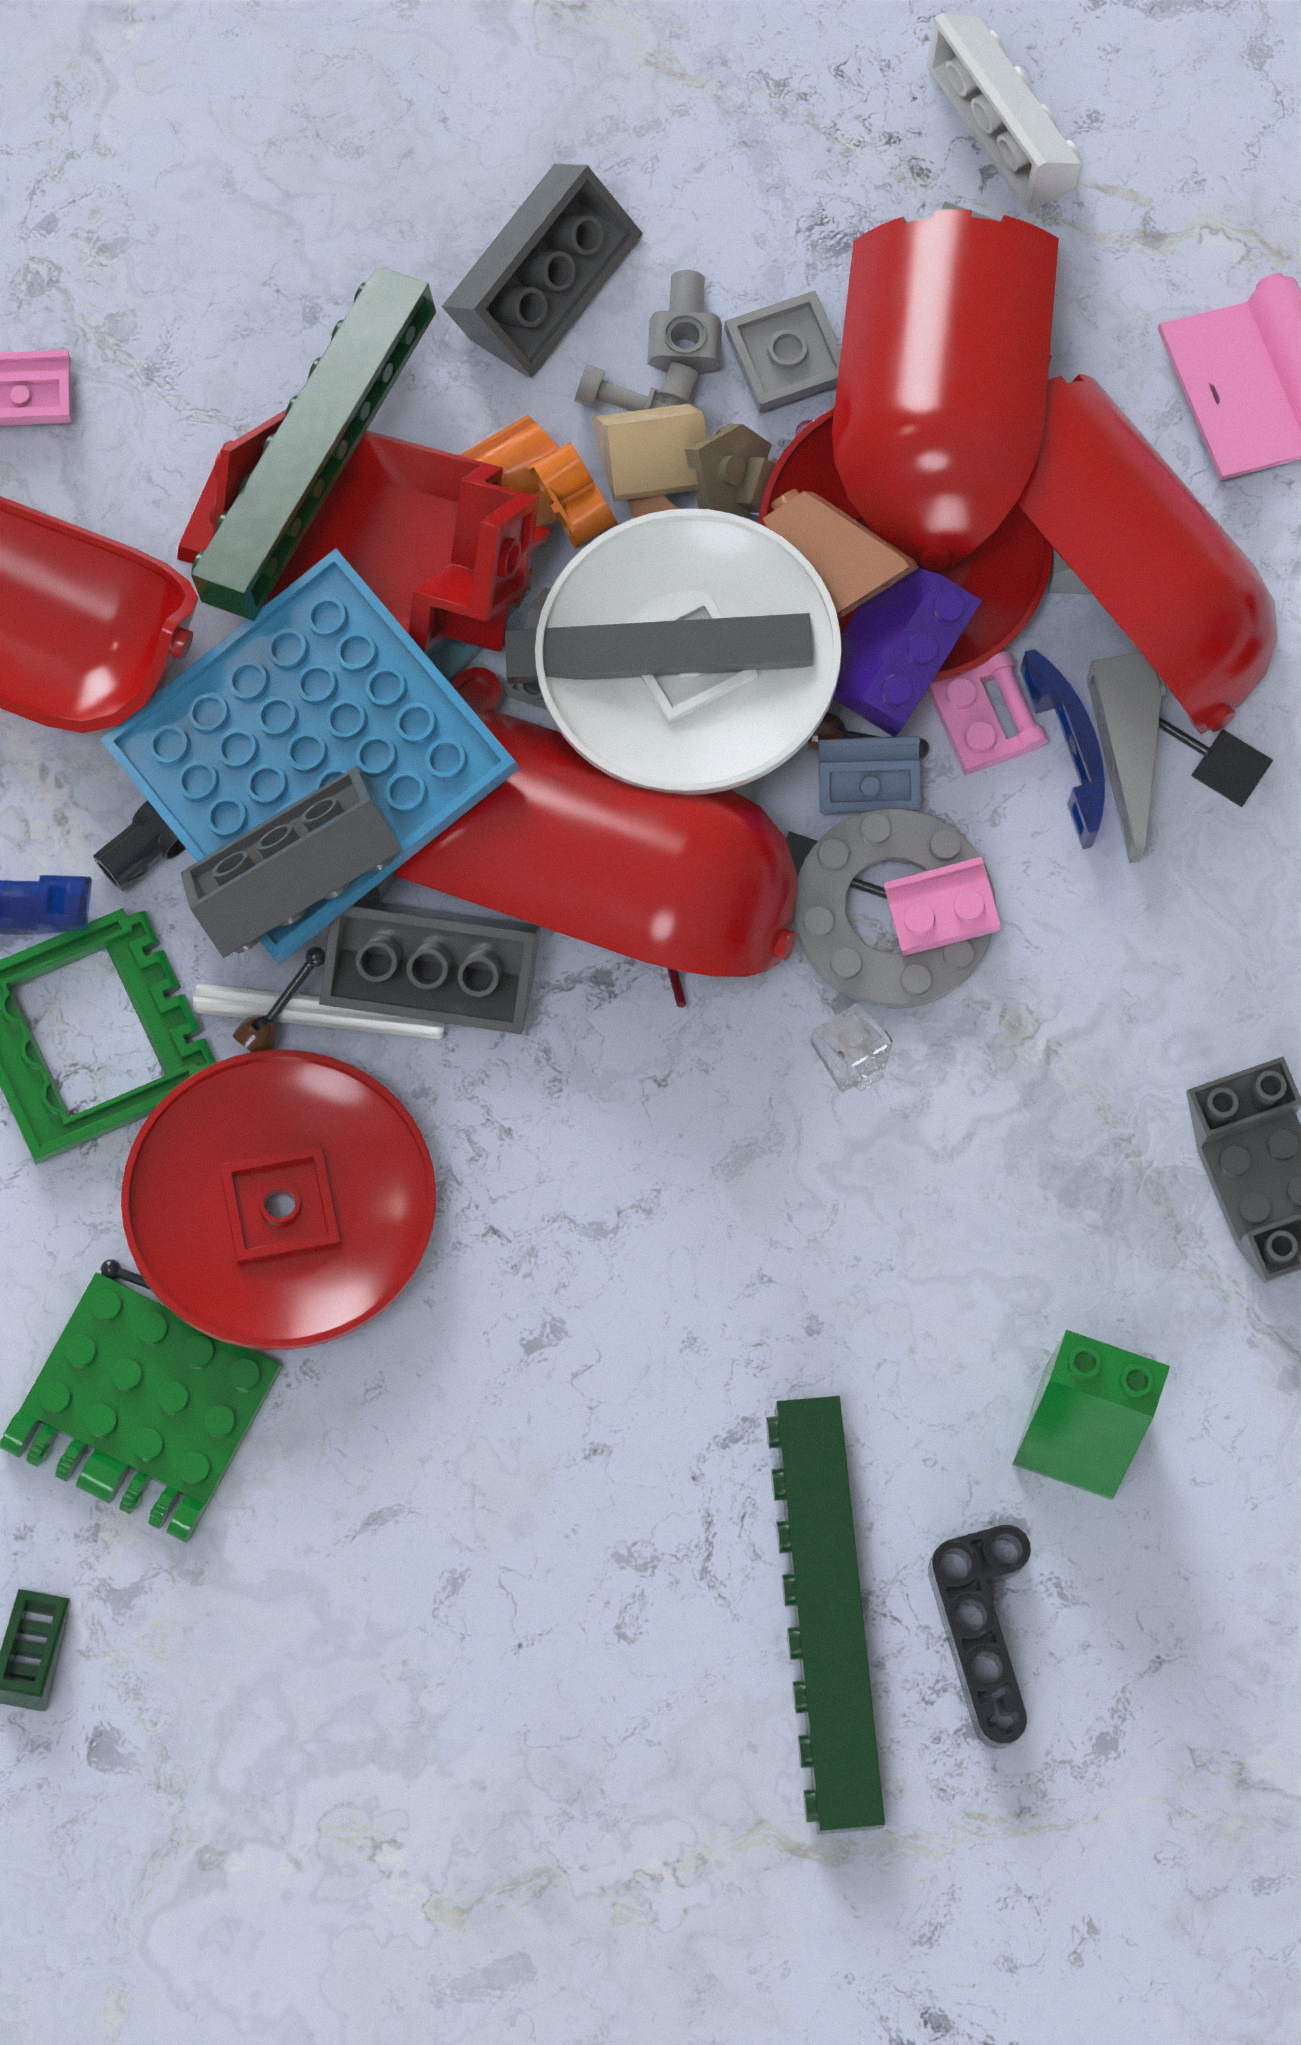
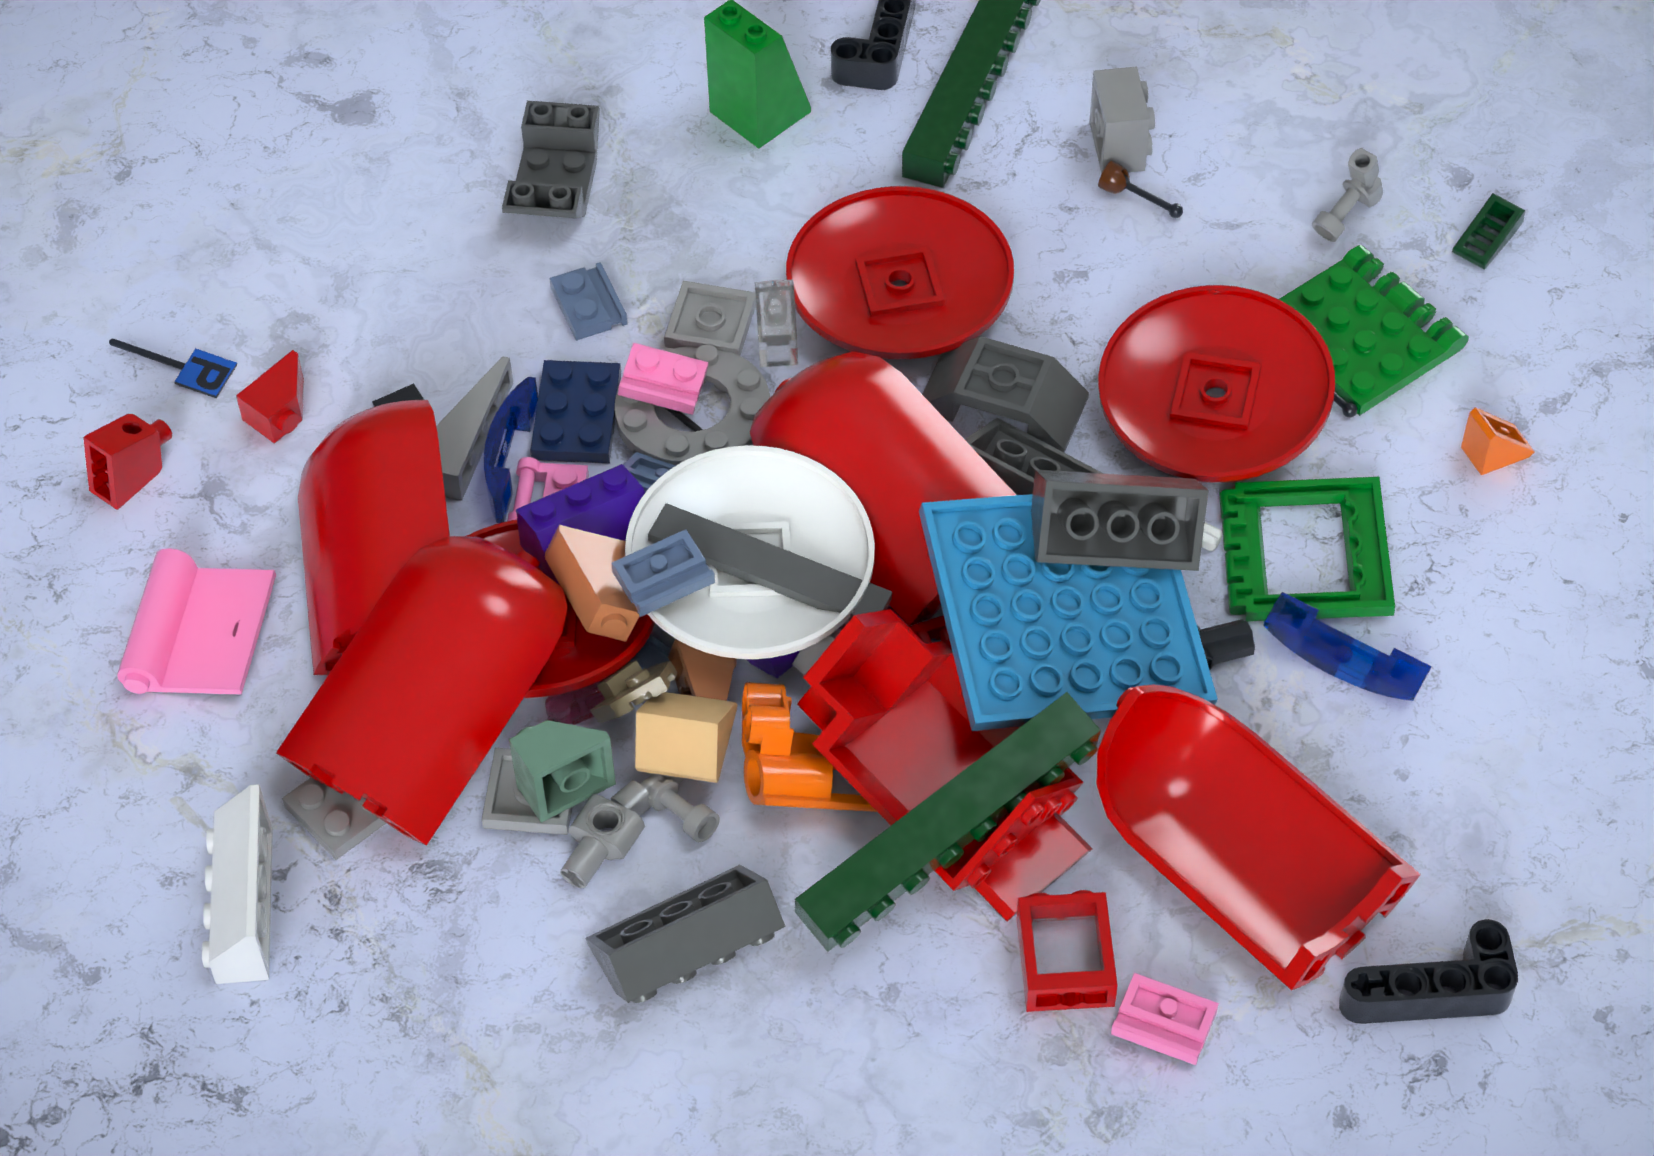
camera: 150 degrees left, 20 degrees down
(149, 412) = (1066, 951): none -> red window
(219, 1609) = (1363, 187): none -> light grey bar
(533, 1076) = (1010, 385): none -> dark grey slope
(550, 1511) = (1116, 179): none -> hinge
(581, 1586) = (1121, 118): none -> light grey brick
(755, 335) = (561, 765): none -> sand green slope
(757, 553) = (663, 572): none -> sand blue plate
(760, 1128) = (935, 242): none -> red dish
(944, 1042) = (710, 317): none -> light grey plate
(1028, 846) = (576, 411): none -> dark blue plate
(1110, 1012) = (588, 301): none -> sand blue plate

